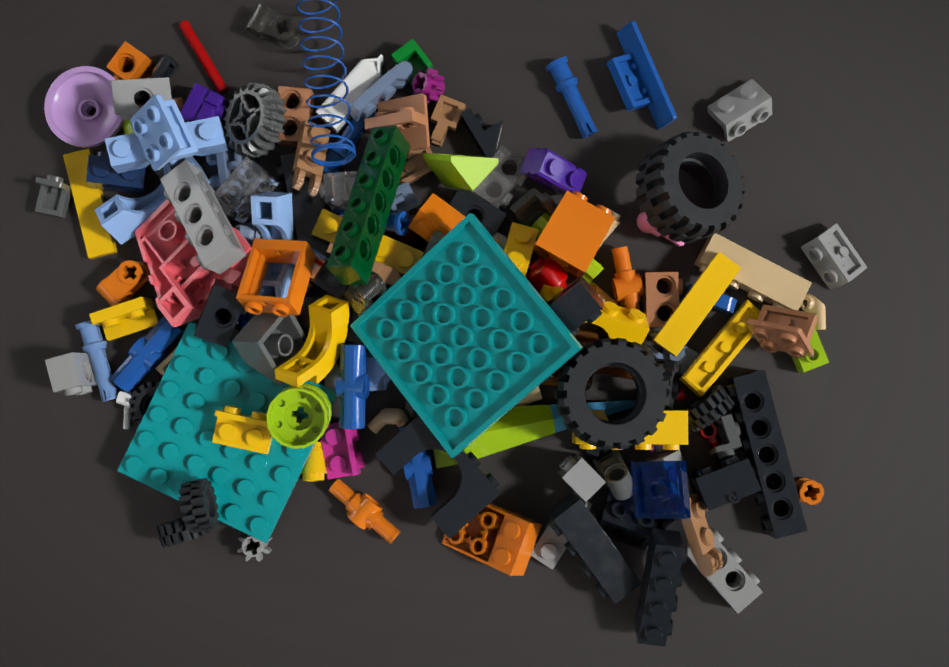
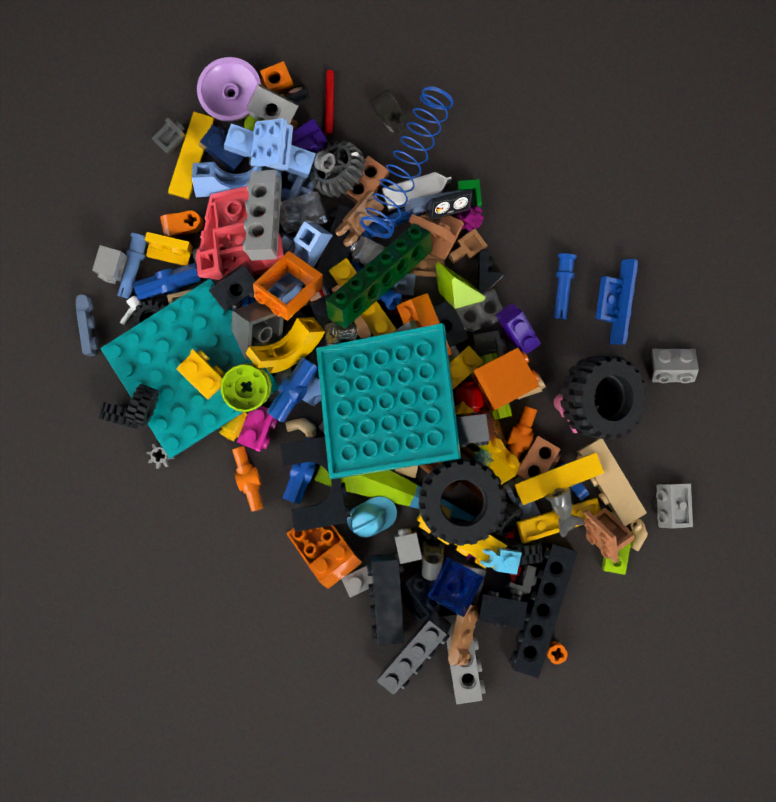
camera: 30 degrees right, 0 degrees up
(87, 454) = (86, 323): none -> sand blue hinge
(240, 116) = (319, 160): none -> light grey bush
(397, 82) = (449, 204): none -> slope
(522, 468) = (372, 516): none -> medium azure piece
(603, 330) = (483, 457): none -> clear light blue plate
(695, 429) = (504, 561): none -> medium azure plate
(720, 331) = (562, 506): none -> dark grey animal

